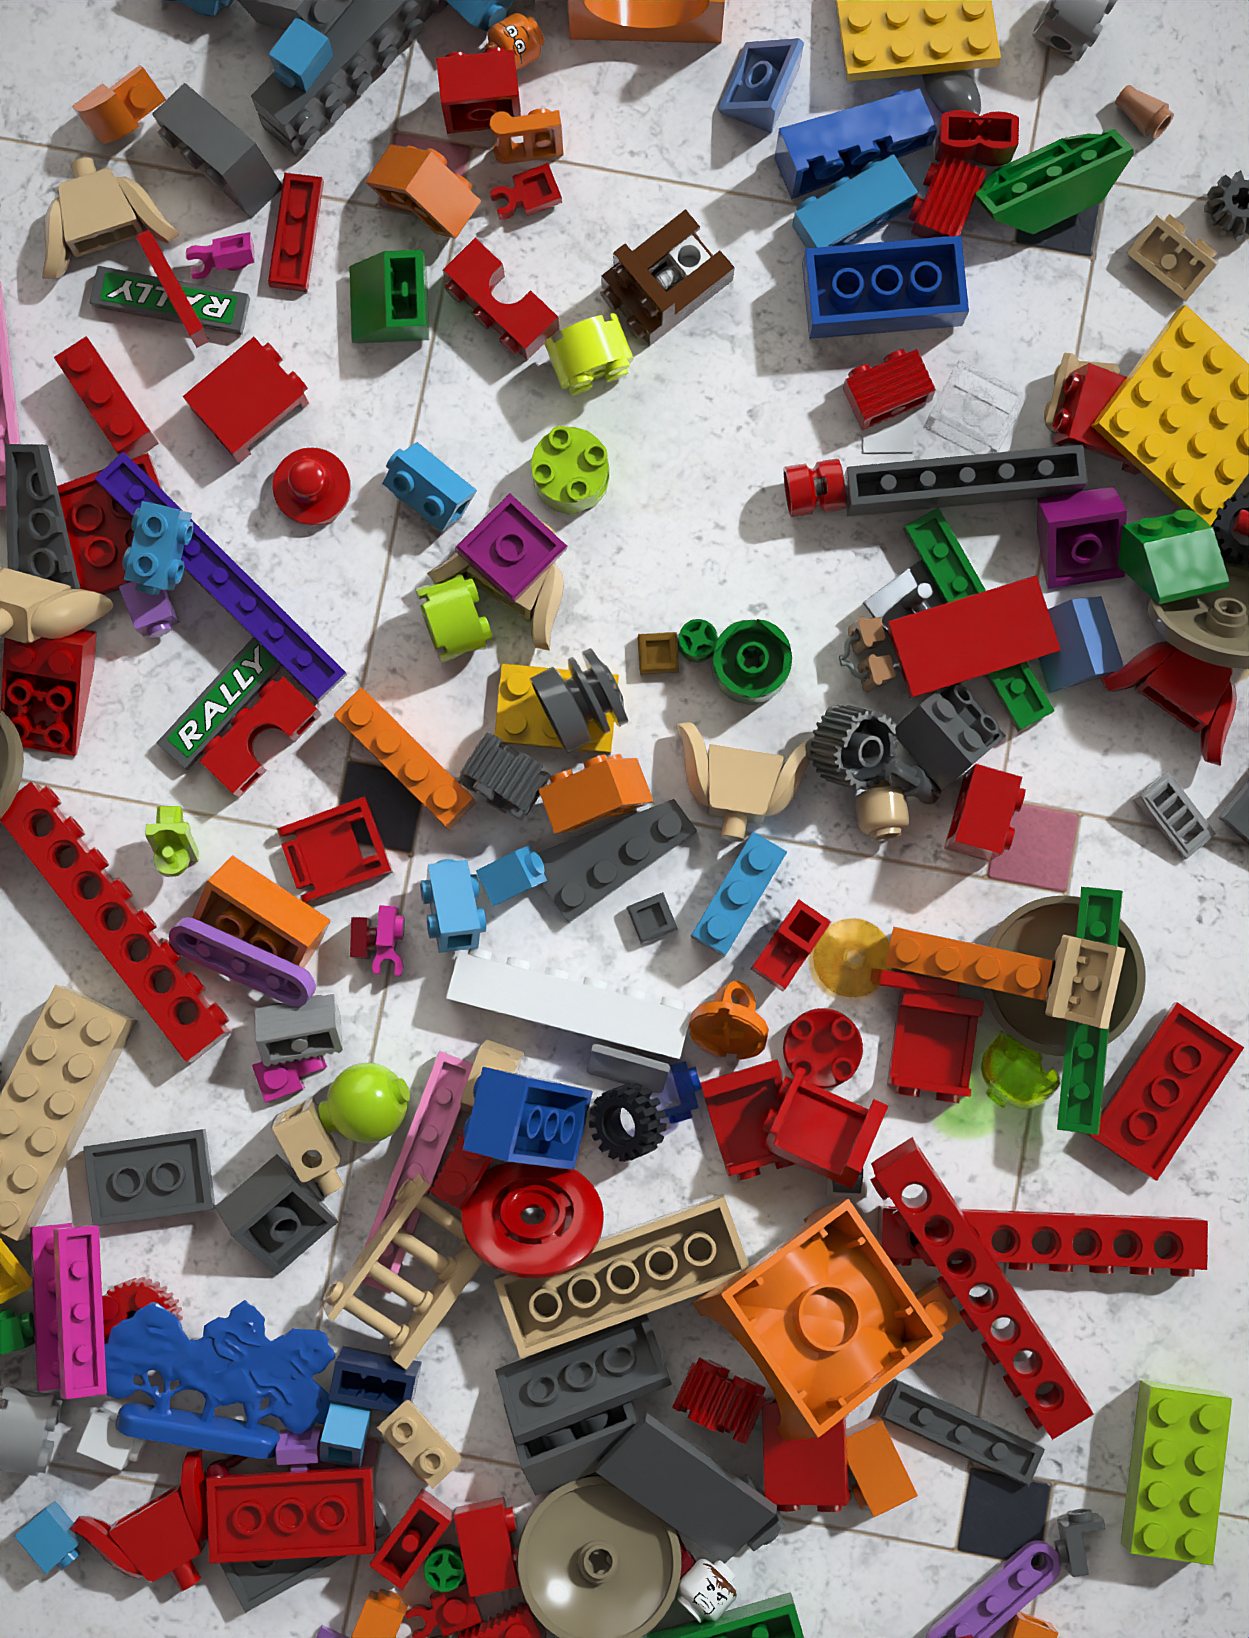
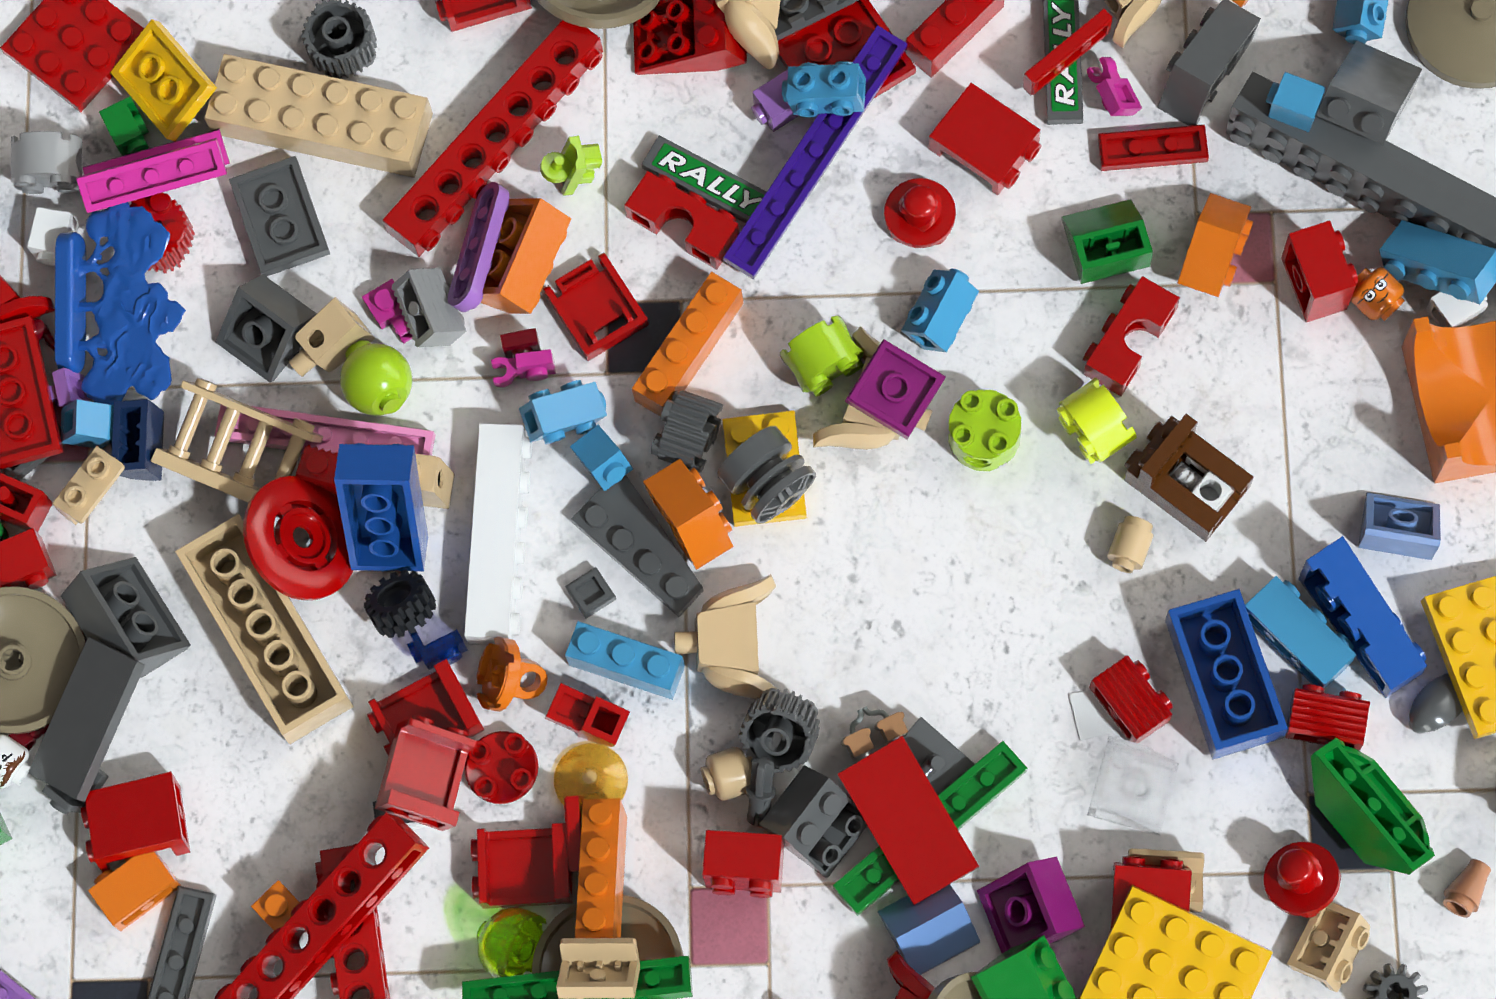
camera: 85 degrees right, 10 degrees down
(532, 190) = (1242, 342): red plate -> none
(540, 134) = (1287, 325): orange plate -> none
(582, 1378) = (169, 613): dark grey plate -> none
(627, 1068) = (451, 597): light grey slope -> none
(658, 653) = (835, 547): pearl gold tile -> none
(700, 633) = (853, 569): green wheel -> none
(719, 1400) = (168, 735): red brick -> none
(724, 351) = (1130, 544): none -> tan brick
(750, 639) = (835, 607): green brick -> none
(801, 490) = (1015, 638): red wheel -> none
(823, 1320) = (252, 796): orange piece -> none
(964, 480) = (1057, 785): dark grey brick -> none
(976, 138) = (1397, 739): red brick -> none
(1105, 265) = (1302, 879): none -> red plate

